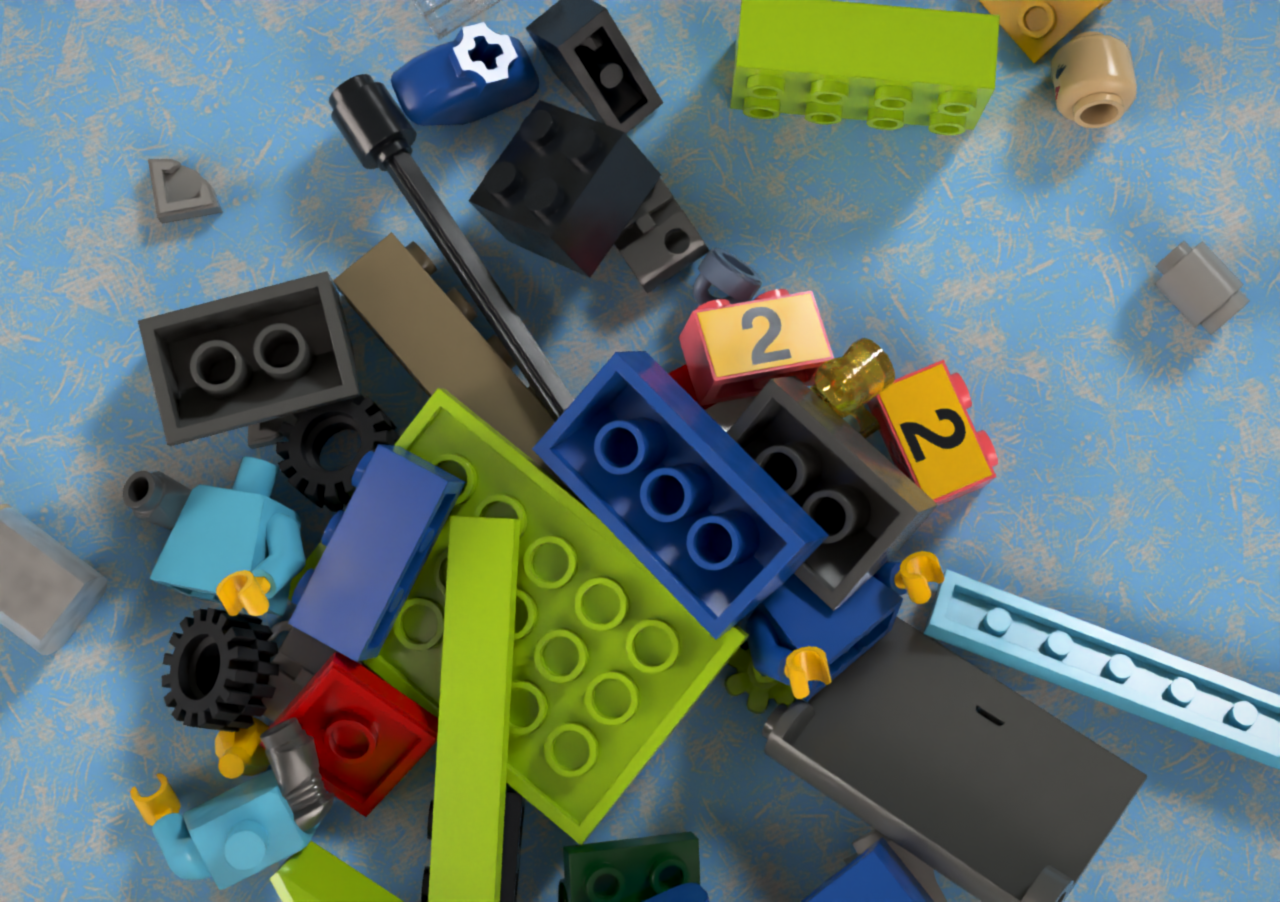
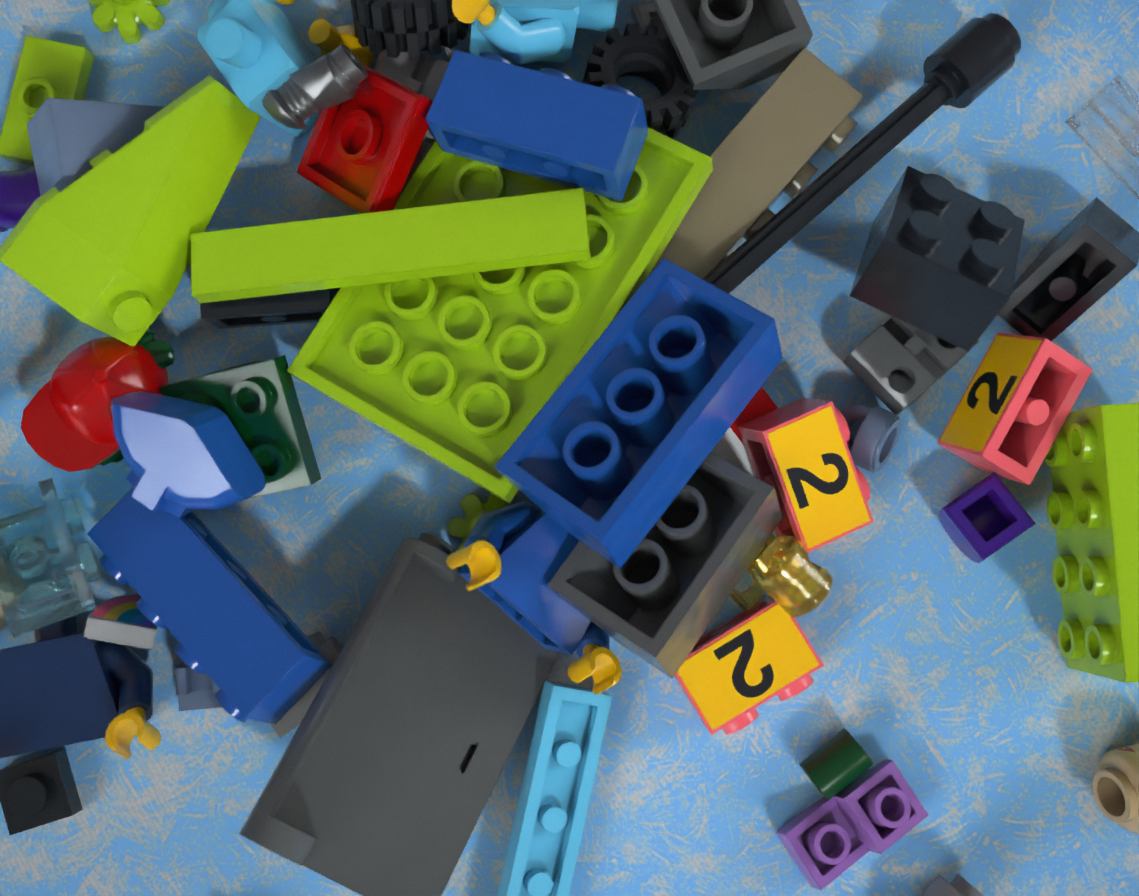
camera: 80 degrees right, 5 degrees up
(465, 78) = (1033, 147): blue piece -> none
(718, 140) = (1015, 406): none -> coral brick
(822, 184) = (984, 519): none -> dark purple brick
(1039, 363) = (836, 764): none -> dark green hinge
(1095, 358) = (857, 820): none -> medium lavender slope

